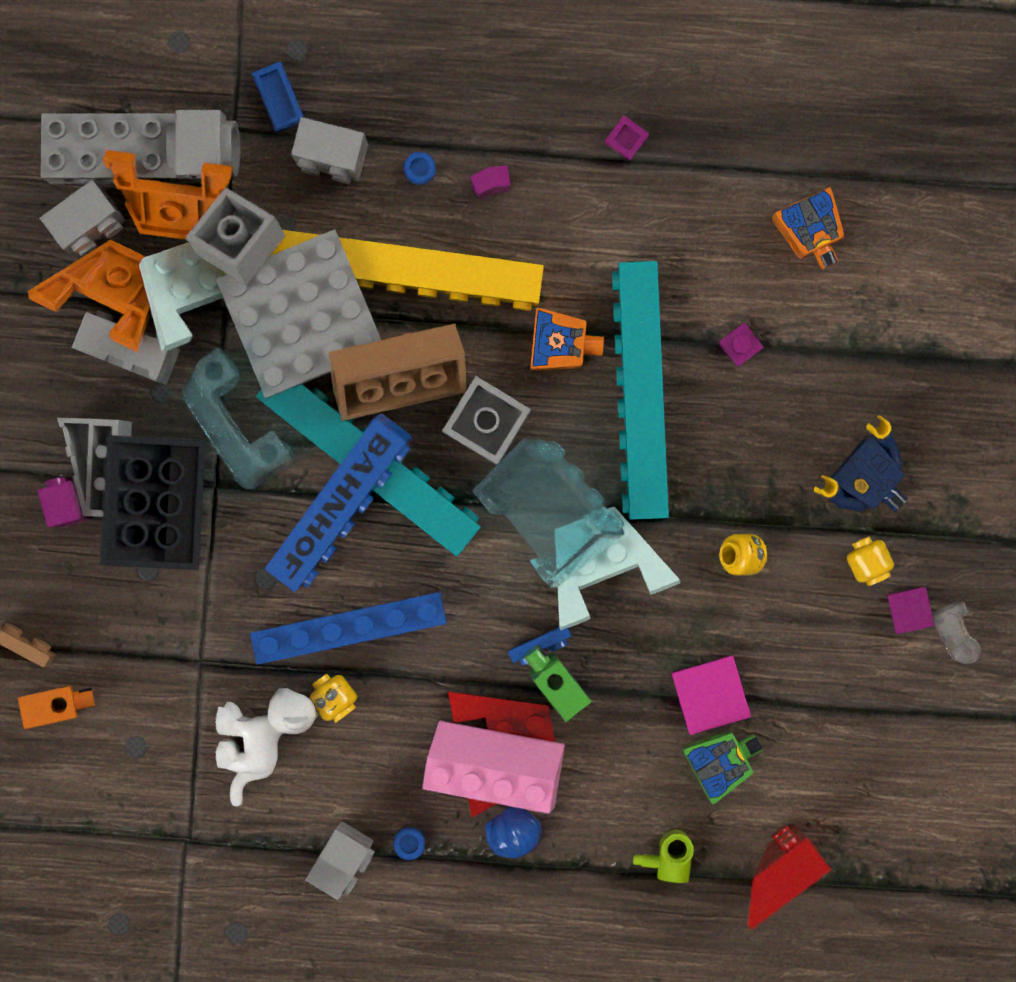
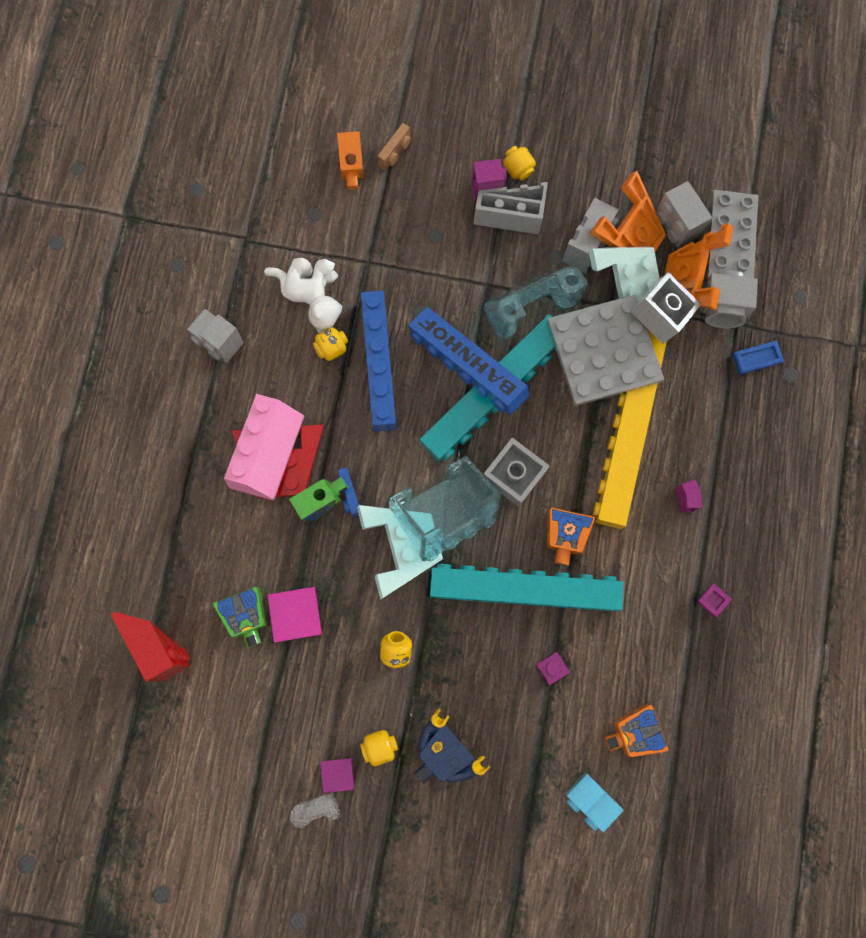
camera: 90 degrees right, 10 degrees down
(26, 461) = (519, 163): none -> yellow head
(152, 502) = (482, 236): black slope -> none
(329, 150) = (720, 384): light grey brick -> none
(398, 372) = (557, 410): medium nougat brick -> none
(409, 843) = (220, 386): blue tile -> none
(419, 168) = (701, 449): blue tile -> none
(513, 833) = (214, 458): blue hair -> none
(670, 867) = (172, 568): lime piece -> none
(905, 277) = (593, 802): none -> medium azure brick

